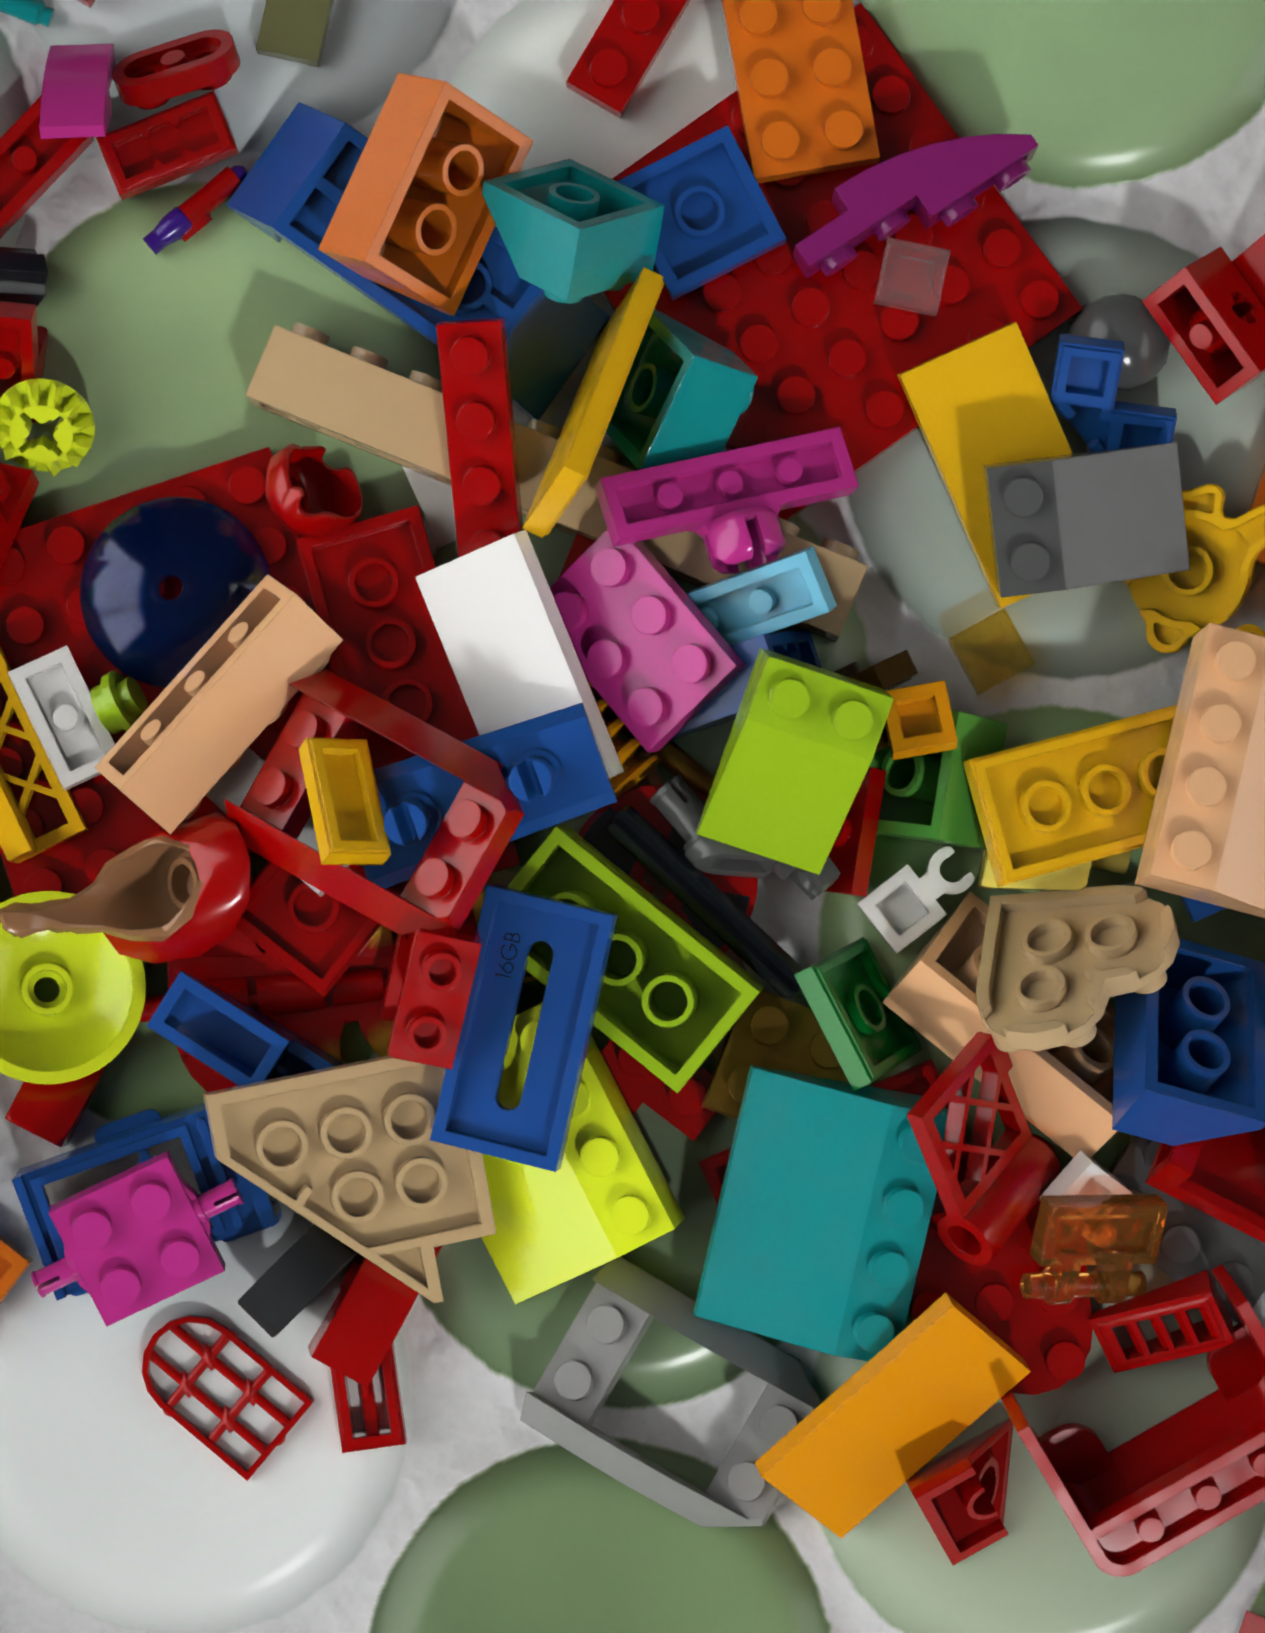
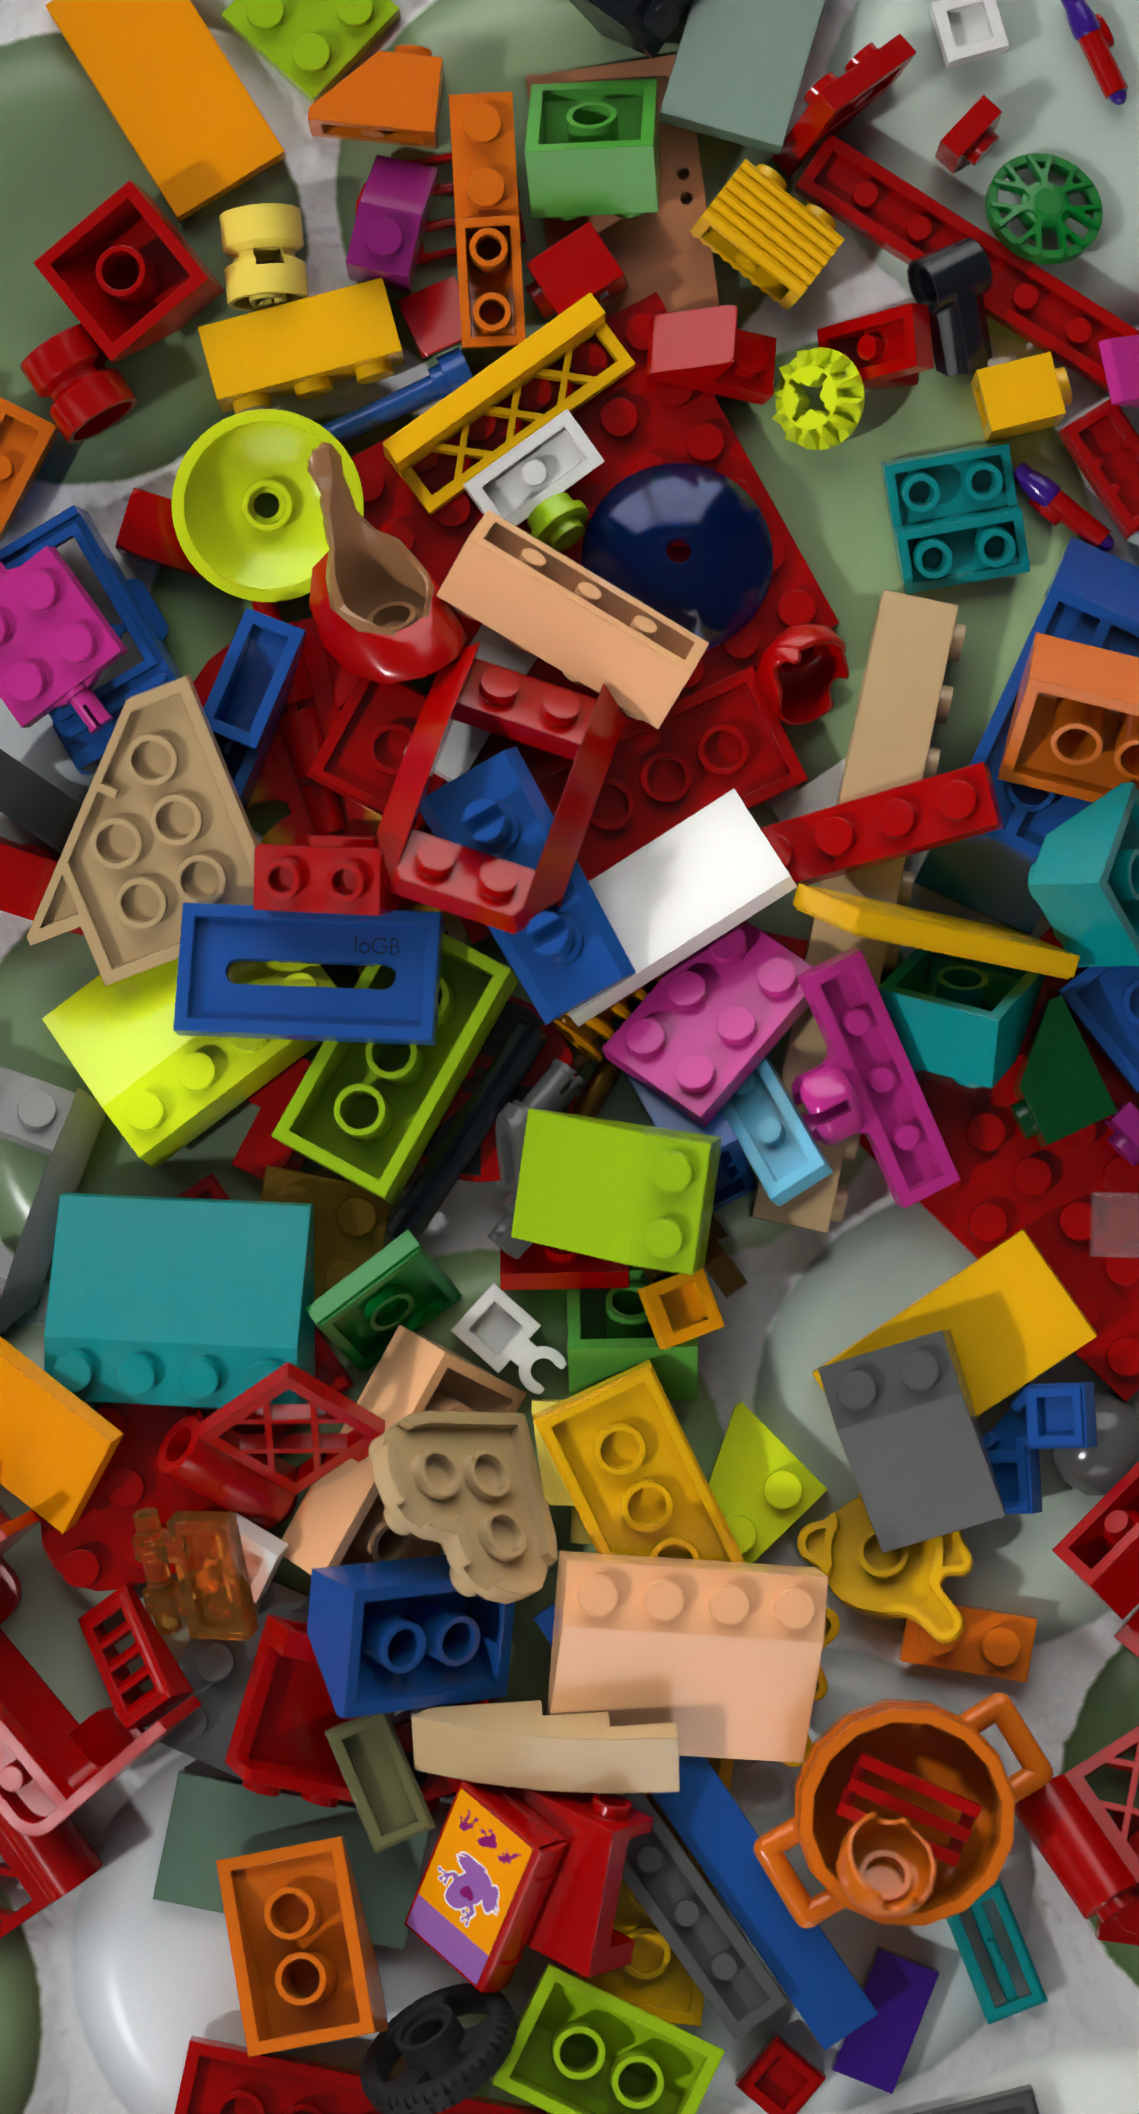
camera: 80 degrees right, 0 degrees up
(79, 228) = (1020, 396): none -> yellow brick
(185, 314) = (955, 516): none -> teal slope
(344, 801) = (496, 757): yellow tile -> none
(759, 313) = (1058, 1080): none -> dark green slope
(990, 651) = (767, 1371): clear yellow tile -> none
(1099, 678) = (759, 1484): none -> neon yellow wing

